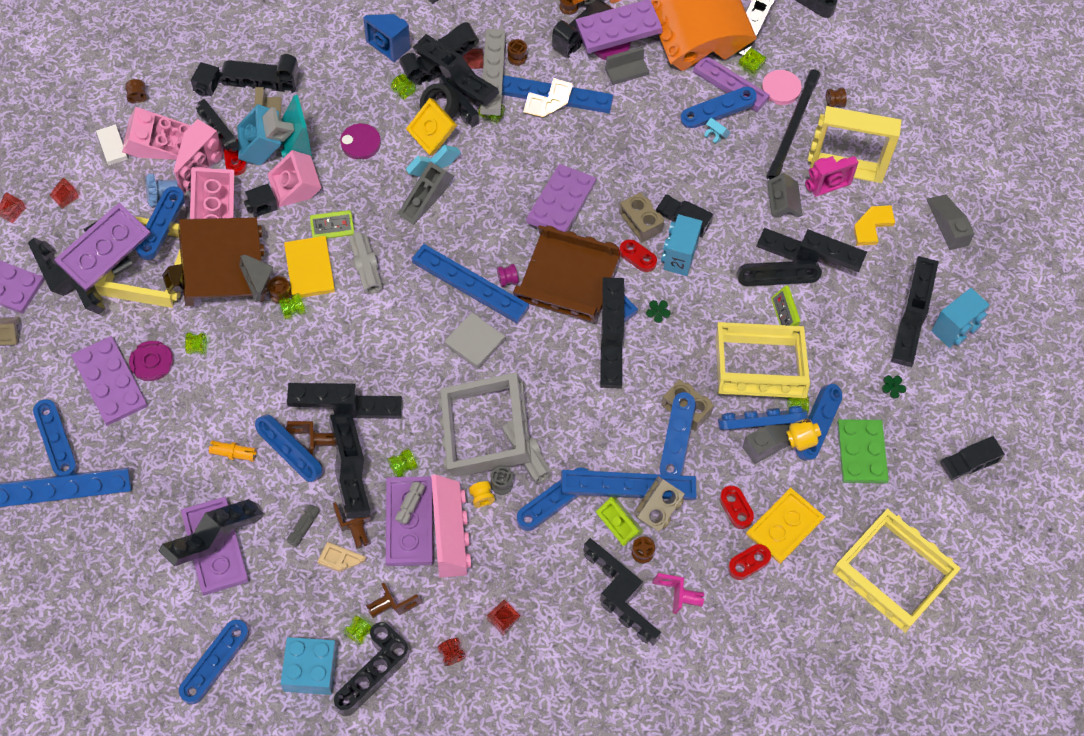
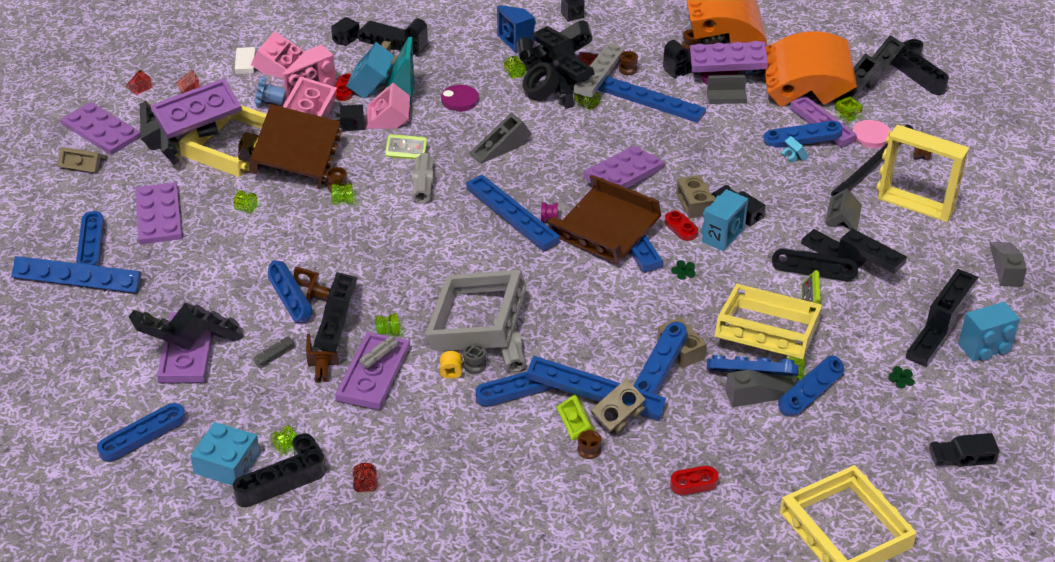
camera: 20 degrees right, 20 degrees down
(135, 91) = (287, 27): reddish brown wheel -> none
(154, 366) = (201, 207): magenta tile -> none
(161, 222) = (255, 109): blue plate -> none
(213, 120) = (339, 60): black plate -> none
(232, 450) = (238, 283): light orange pin -> none
(256, 275) = (320, 158): dark grey slope -> none
(274, 127) = (385, 61): light grey panel -> none
(309, 266) = (372, 172): yellow tile -> none
(339, 558) = (295, 384): tan tile -> none
(344, 400) = (355, 262): black bracket -> none
(388, 601) = (325, 425): reddish brown bracket -> none
(431, 127) = (526, 96): yellow tile -> none
(442, 158) = (530, 117): medium azure tile -> none
(449, 527) = (406, 378): bright pink slope -> none
(474, 340) = (497, 252): light grey tile -> none
(503, 617) = (427, 463): clear red slope -> none
(557, 98) = (651, 99): tile -> none
(612, 333) = (629, 271): black bracket -> none
(621, 592) = (552, 471): black bracket -> none
(680, 594) = (613, 489): dark pink bracket -> none
(737, 507) = (700, 435): red plate -> none
(785, 525) = (745, 461): yellow tile -> none
(803, 434) = (787, 383): yellow head -> none
(831, 175) = (894, 198): dark pink plate -> none
(862, 451) = (848, 421): bright green plate -> none
(865, 228) = (917, 250): yellow tile -> none

